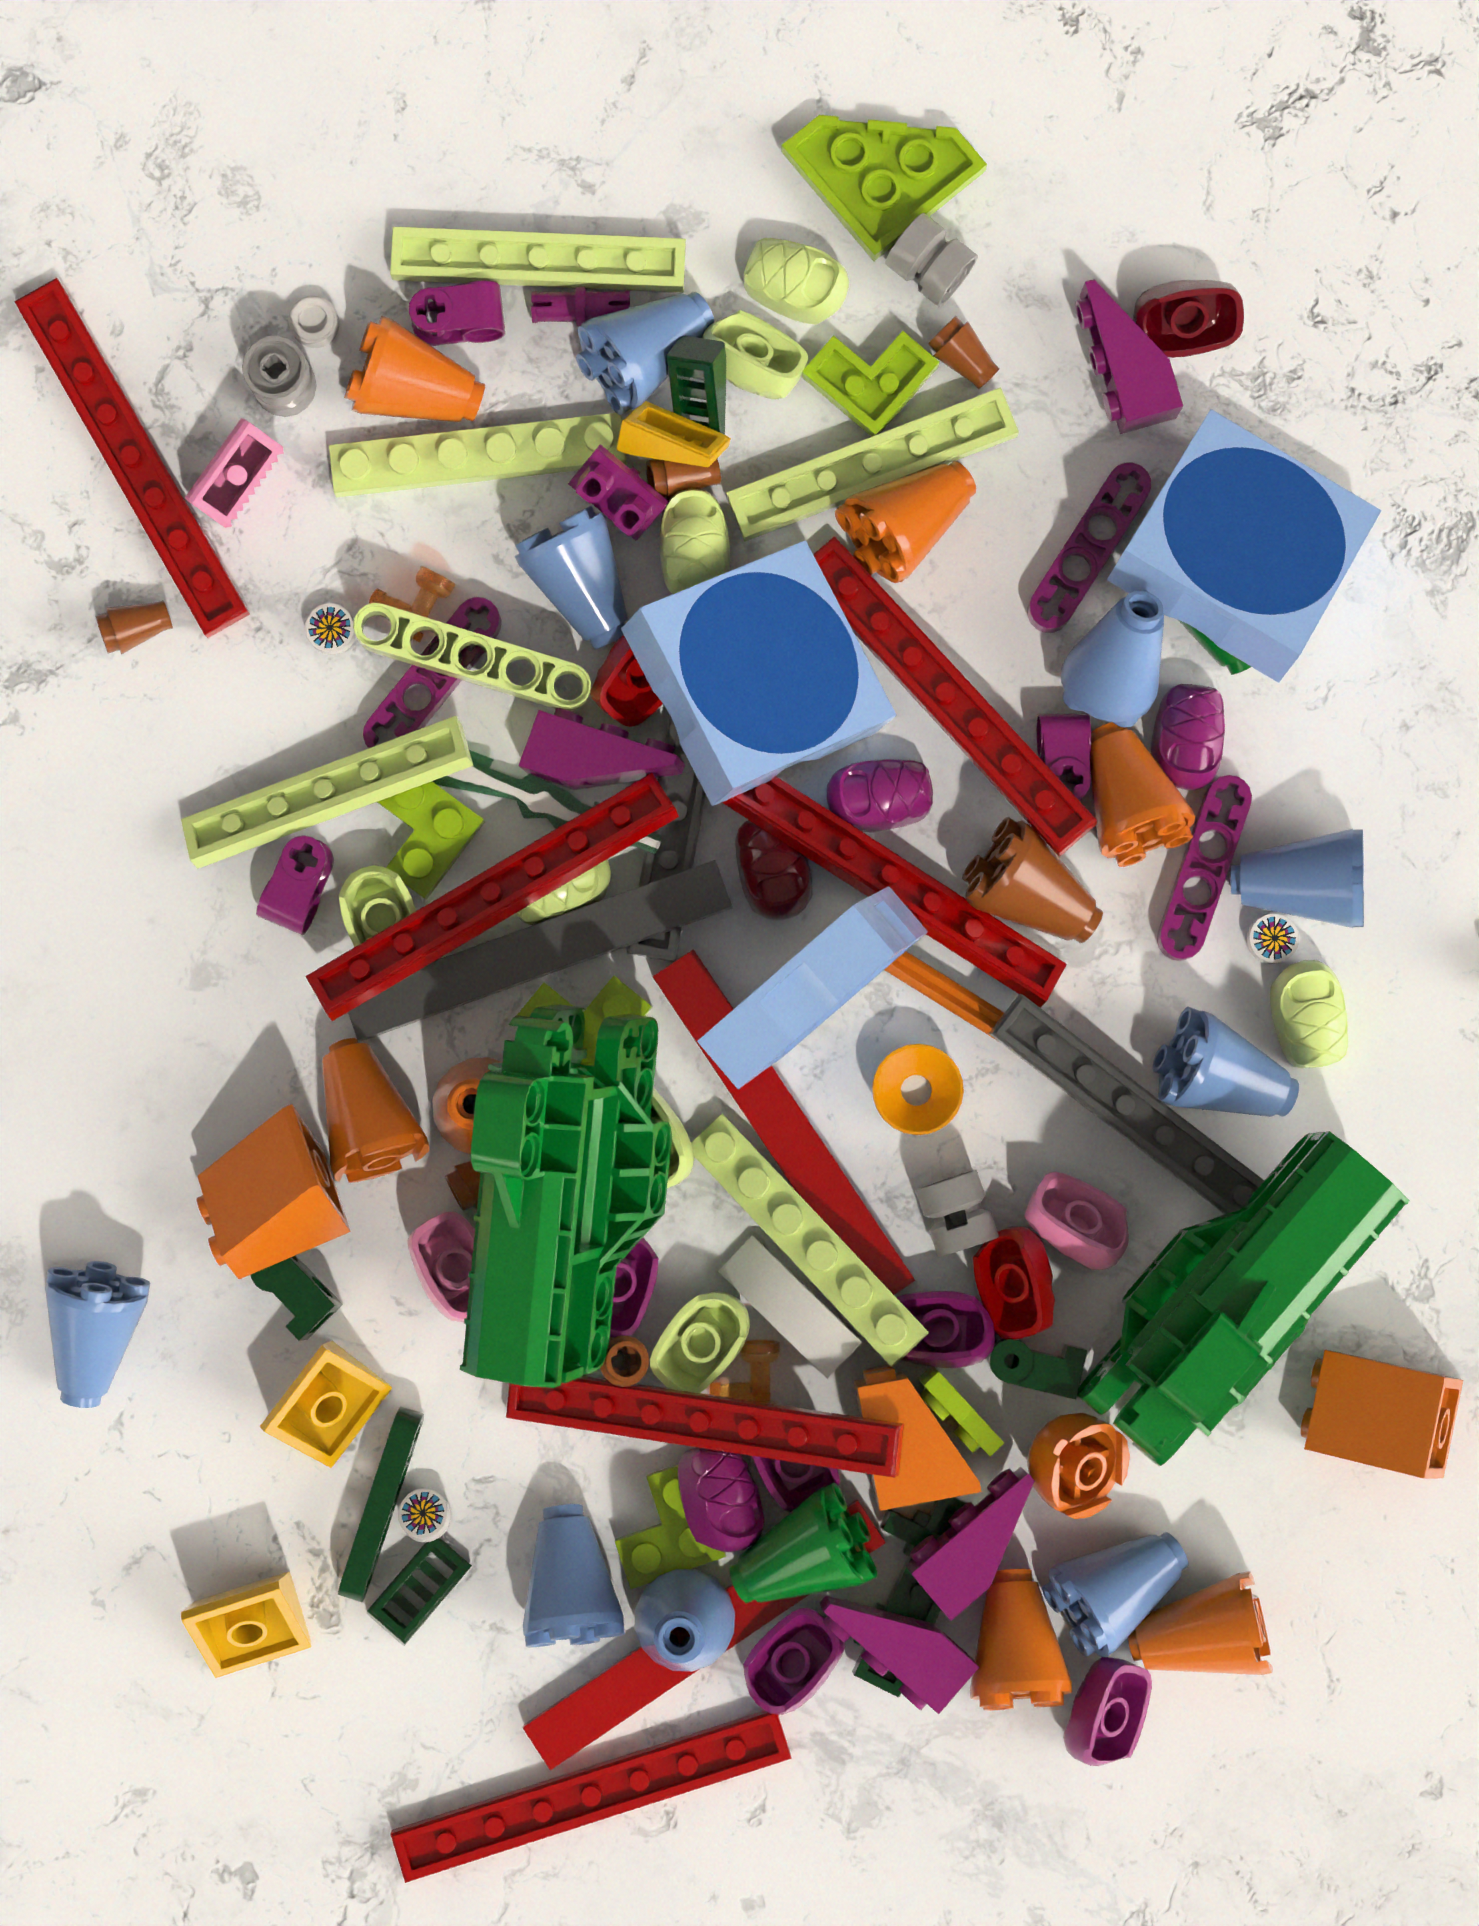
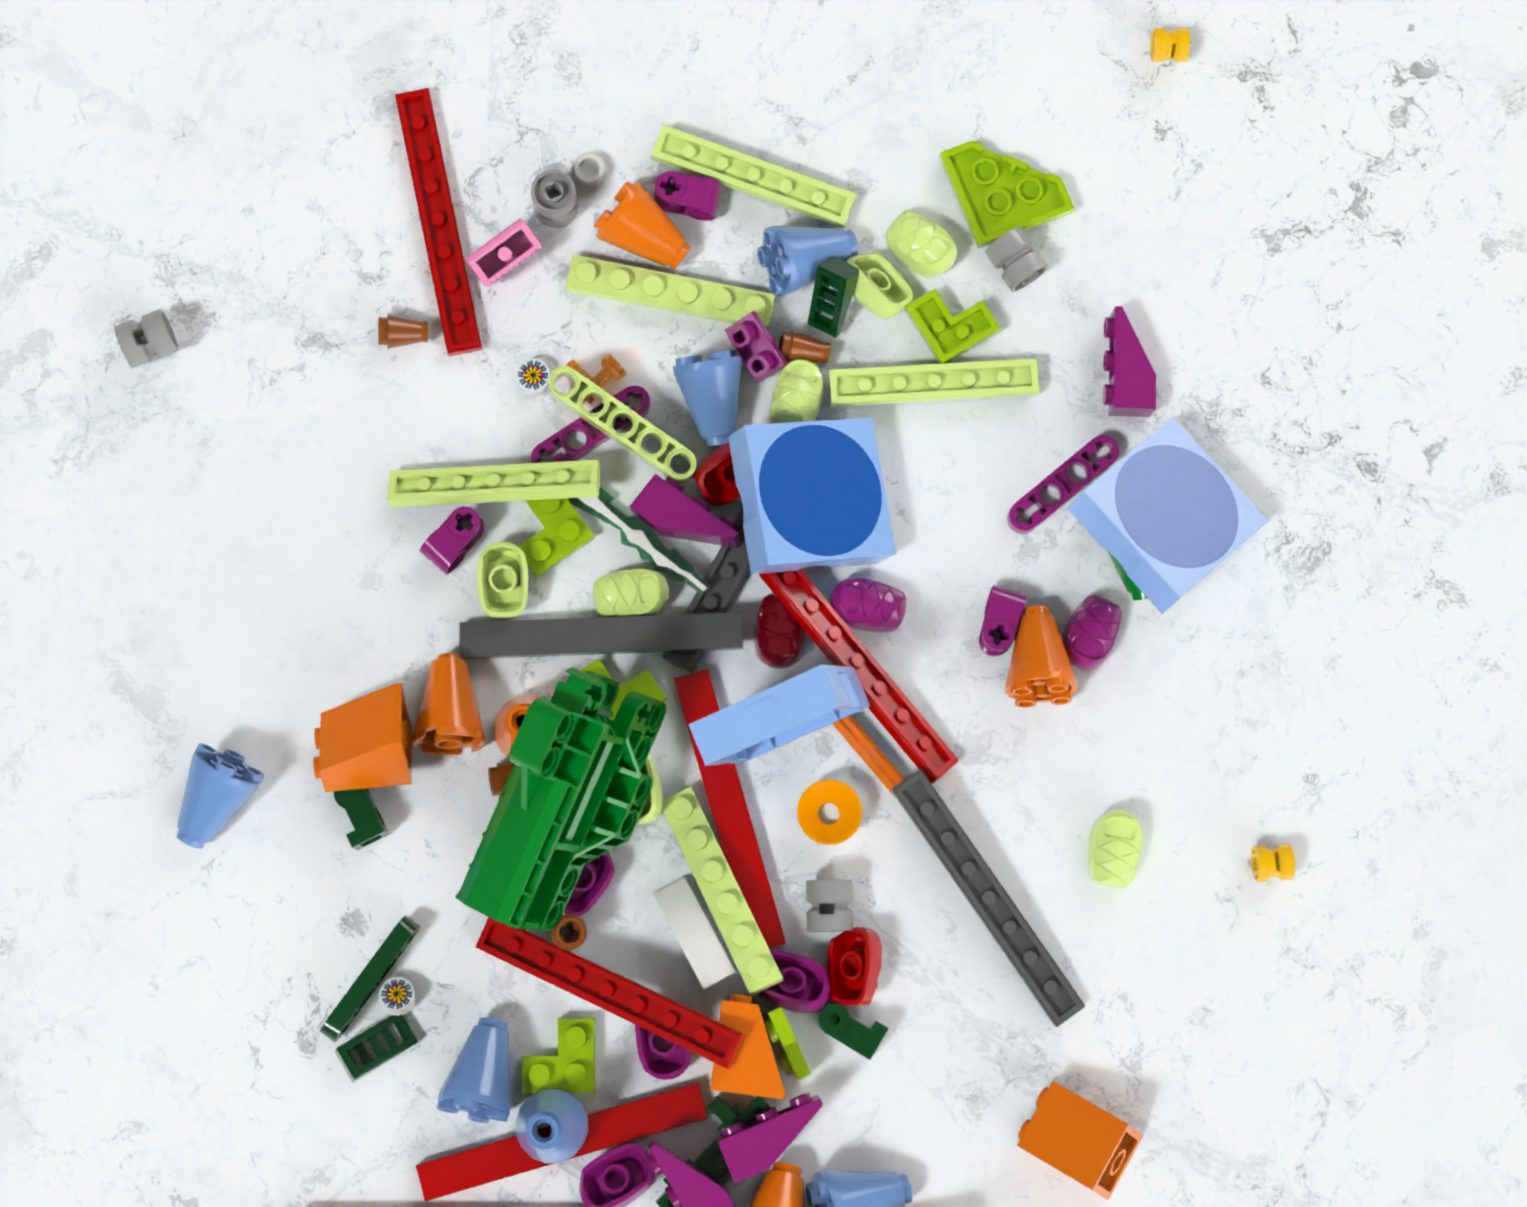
camera: 10 degrees right, 5 degrees down
(248, 1625) = (251, 1033): yellow slope -> none
(326, 1405) = (355, 898): yellow slope -> none
(442, 1260) = (466, 821): bright pink piece -> none
(491, 896) = (582, 588): red tile -> none
(576, 305) = (768, 215): magenta pin -> none
(669, 437) = (802, 320): yellow slope -> none
(700, 1342) = (625, 936): yellowish green piece -> none
(720, 1499) = (603, 1049): magenta piece -> none
(759, 1355) = (663, 960): clear orange piece -> none
(807, 1552) = (651, 1105): green cone -> none
(905, 518) = (943, 425): orange cone -> none
(954, 702) = (938, 558): red tile -> none
(963, 352) = (1019, 327): dark orange cone -> none
(1030, 885) = (950, 698): dark orange cone -> none
(1077, 1463) = (857, 1105): orange cylinder -> none
(1079, 1220) = (911, 938): bright pink piece -> none
(1117, 662) = (1057, 566): medium blue cone -> none
(1190, 316) = (1179, 351): dark red piece -> none
(1208, 869) = (1076, 727): magenta beam -> none
(1220, 1070) = (1041, 866): medium blue cone -> none
(1238, 1294) = (1003, 1022): green connector -> none
(1273, 938) = (1105, 788): tile -> none
(1307, 878) = (1141, 754): medium blue cone -> none

